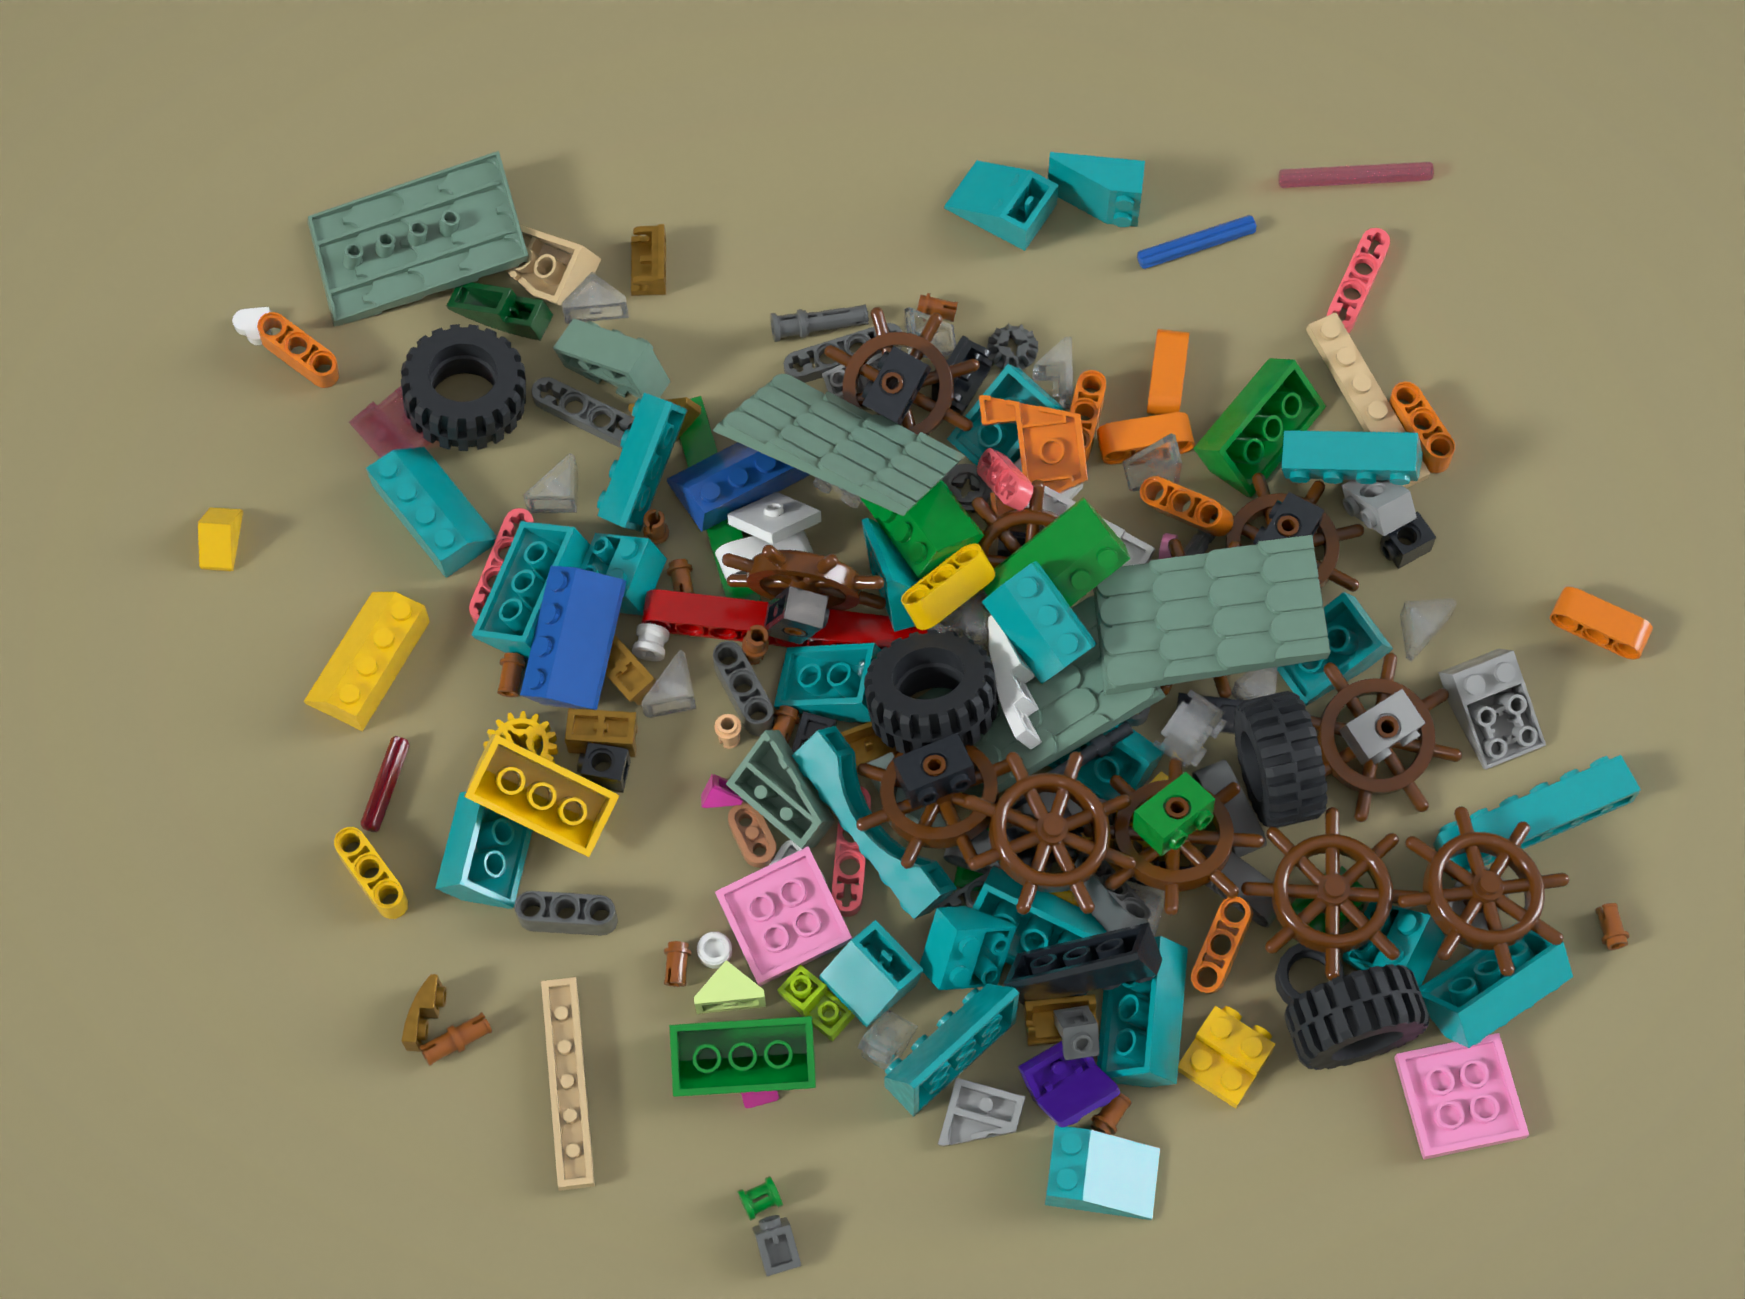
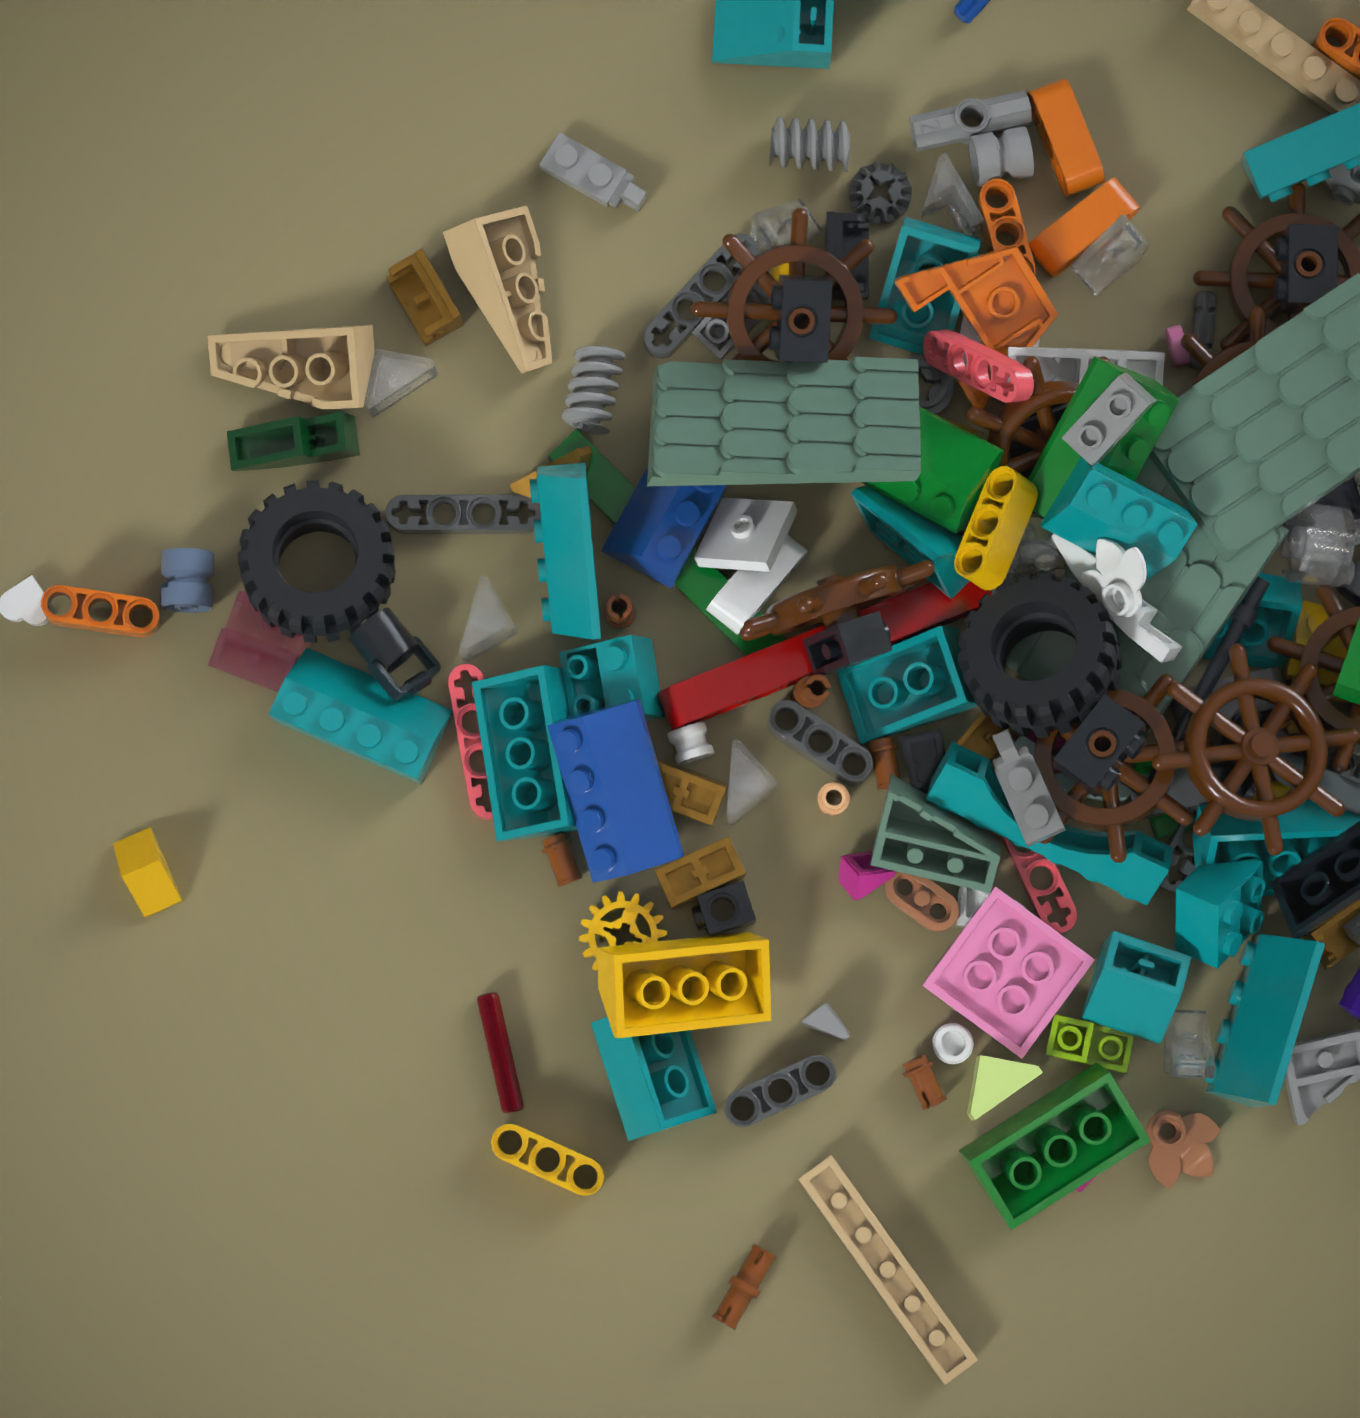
camera: 30 degrees left, 15 degrees up
(369, 359) = (187, 580): none -> sand blue wheel
(369, 658) = (394, 923): yellow slope -> none
(417, 239) = (151, 407): sand green piece -> none
(425, 1005) = (694, 1262): pearl gold slope -> none
(479, 473) = (386, 646): none -> black piece
(612, 358) = (457, 439): sand green wedge -> none
(628, 880) = (827, 1022): none -> light grey slope
(680, 575) = (679, 652): dark orange pin -> none
(712, 267) = (499, 268): none -> tan wedge
(726, 371) = (590, 388): none -> light grey piece
(768, 1188) = (1153, 1281): green bush -> none
(776, 1245) = (1196, 1319): dark grey bracket -> none
(803, 323) = (639, 283): dark grey pin -> none
(815, 239) = (591, 174): none -> light grey hinge
(841, 1118) = (1184, 1150): none -> nougat plate
(866, 783) = (1026, 791): none -> light grey hinge
(931, 305) = (772, 189): dark orange pin -> none
(978, 290) = (810, 144): none -> light grey piece
(1012, 663) = (1117, 578): none -> white plate
(1066, 540) = (1109, 419): none -> light grey brick
(1113, 360) = (1001, 156): none -> light grey wheel
(1122, 333) = (946, 128): none -> light grey piece
(1196, 515) = (1156, 291): orange beam -> none
(1252, 428) = (1197, 148): green slope -> none

